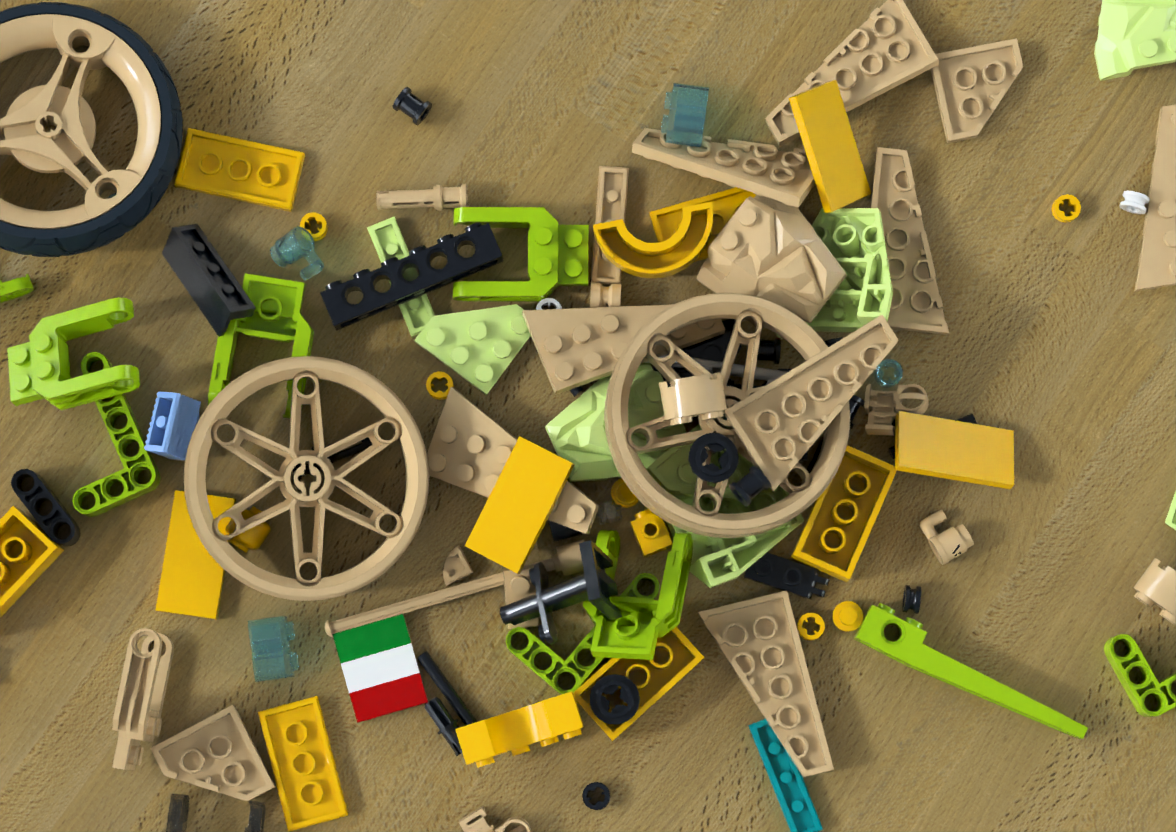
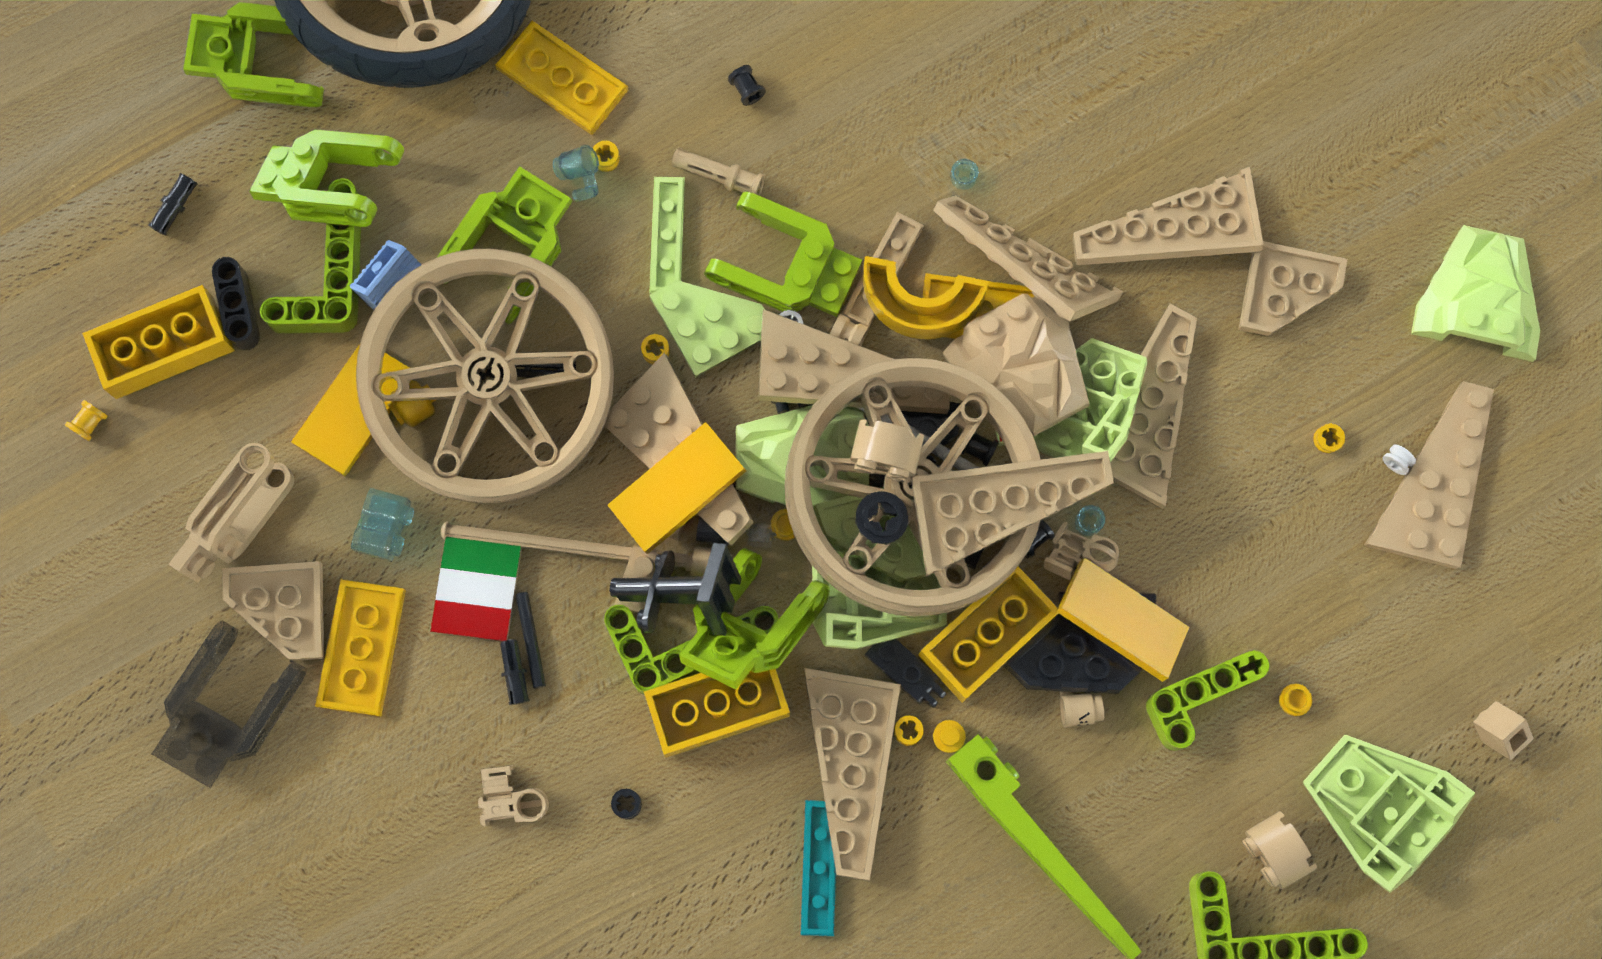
camera: 20 degrees right, 5 degrees down
(206, 277) = (483, 156): black panel -> none
(429, 279) = (657, 245): black brick -> none
(456, 566) = (592, 525): tan tile -> none
(519, 729) = (578, 704): yellow brick -> none
(609, 685) = (667, 713): black gear -> none
(647, 112) = (964, 165): none -> clear light blue bush
(650, 533) = (792, 572): yellow brick -> none
(686, 114) = (999, 197): clear light blue brick -> none
(750, 485) = (905, 560): black bush -> none
(830, 146) = (1124, 280): yellow tile -> none
(911, 599) = (1019, 747): black bush -> none
(925, 505) = (1070, 661): none -> black plate
(1053, 480) = (1208, 690): none -> lime beam
(1130, 454) = (1295, 700): none -> yellow plate

